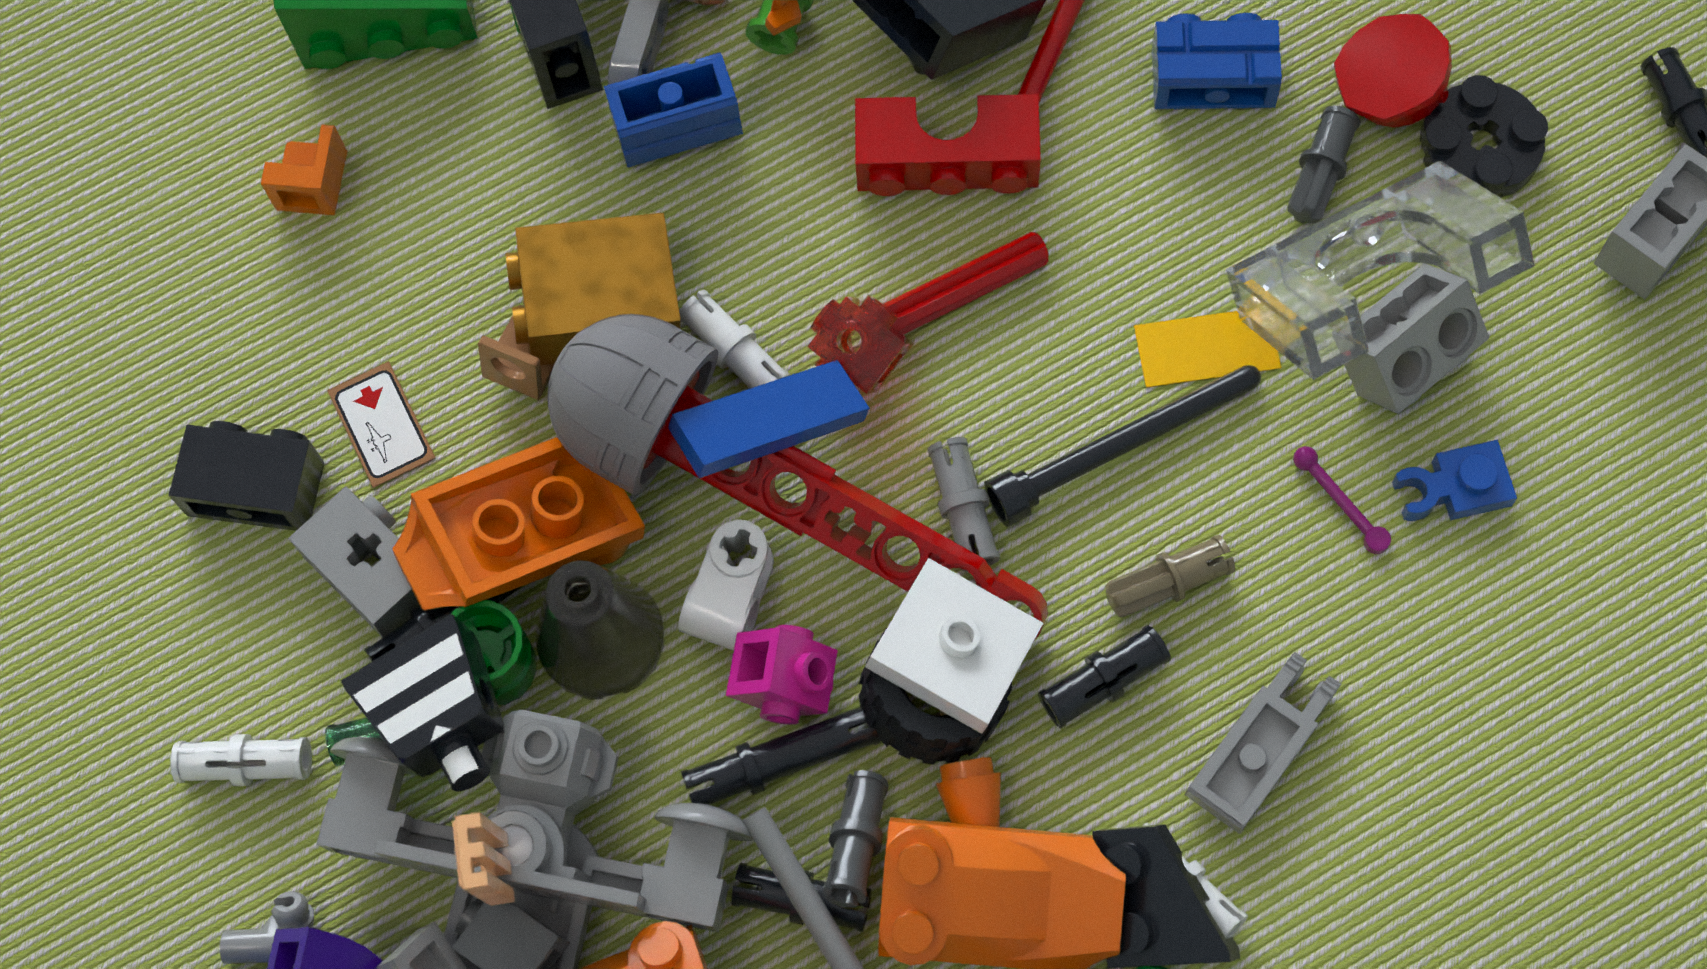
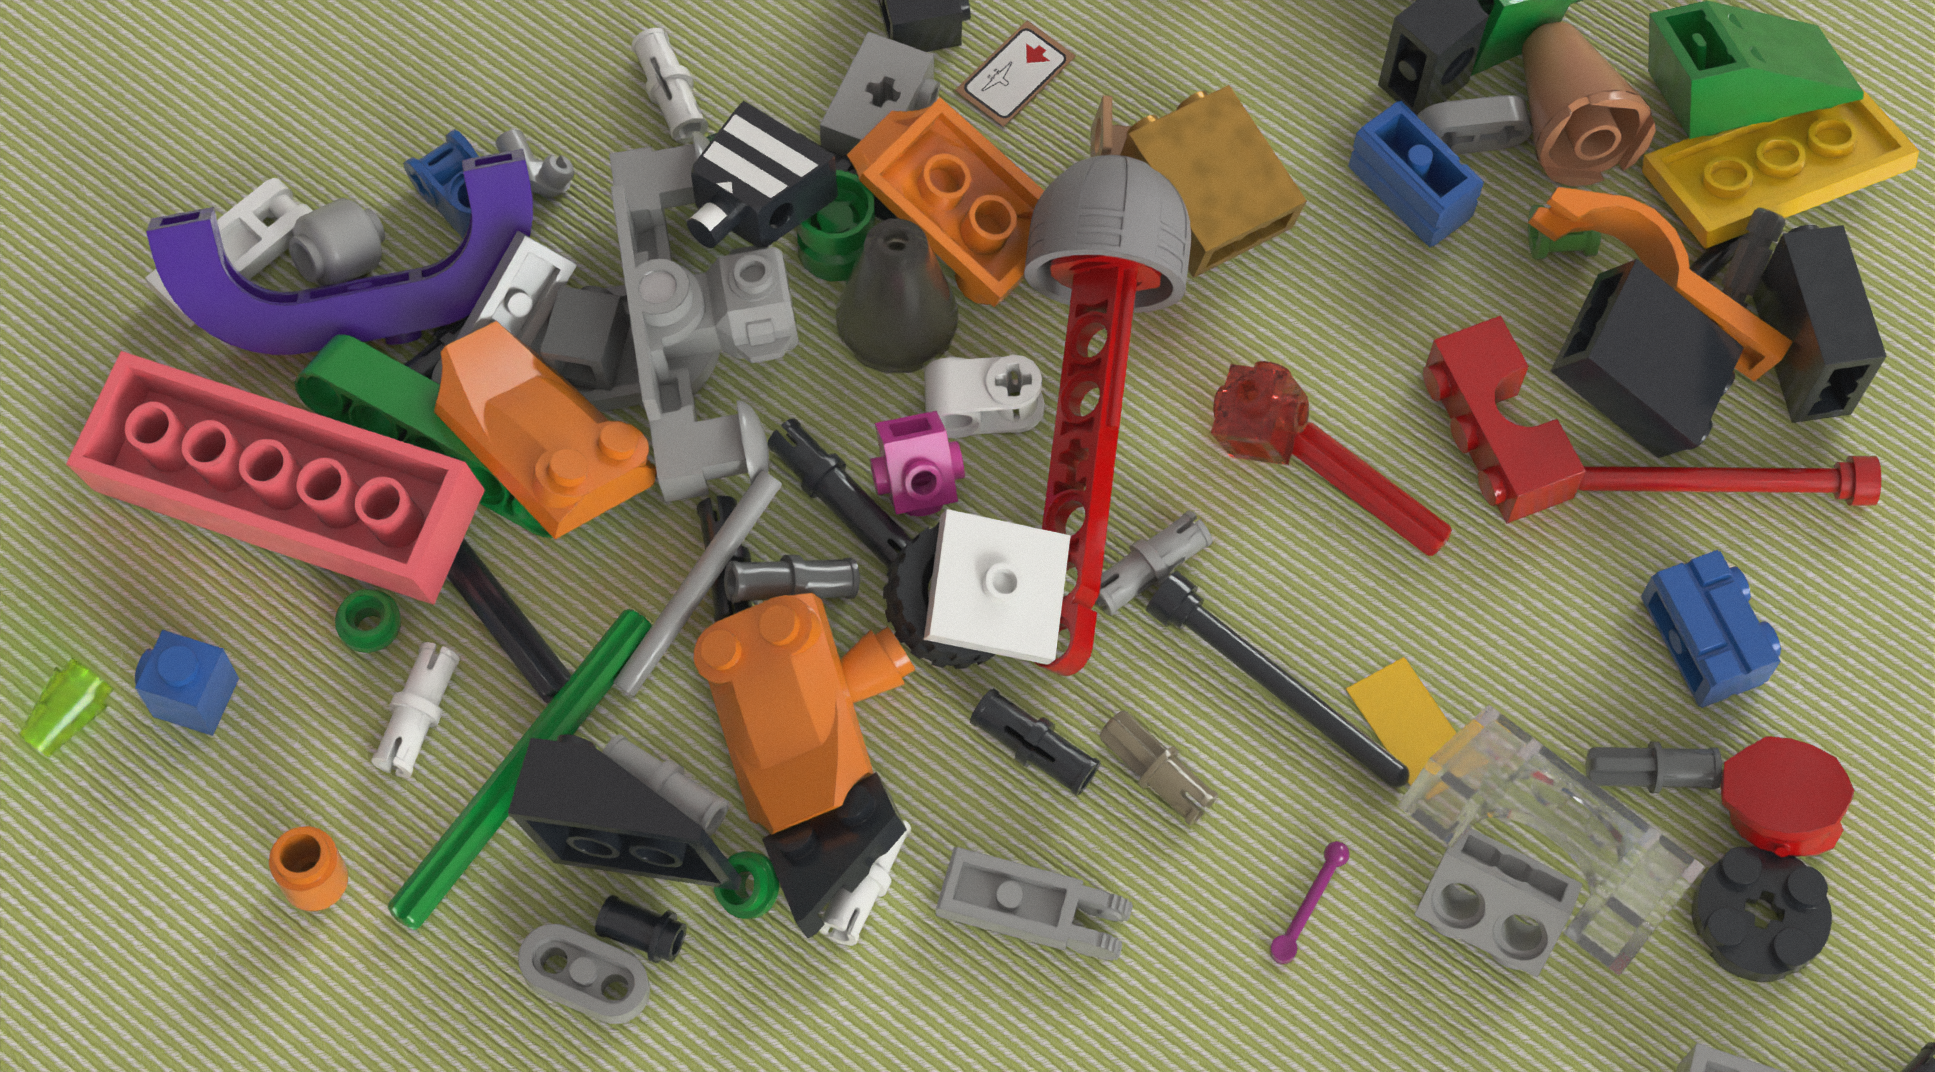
camera: 60 degrees right, 5 degrees down
(475, 846) = (631, 271): light nougat tile -> none
(733, 342) = (1213, 316): white pin -> none
(768, 418) = (1137, 348): blue tile -> none
(1463, 479) = (1380, 1012): blue plate -> none

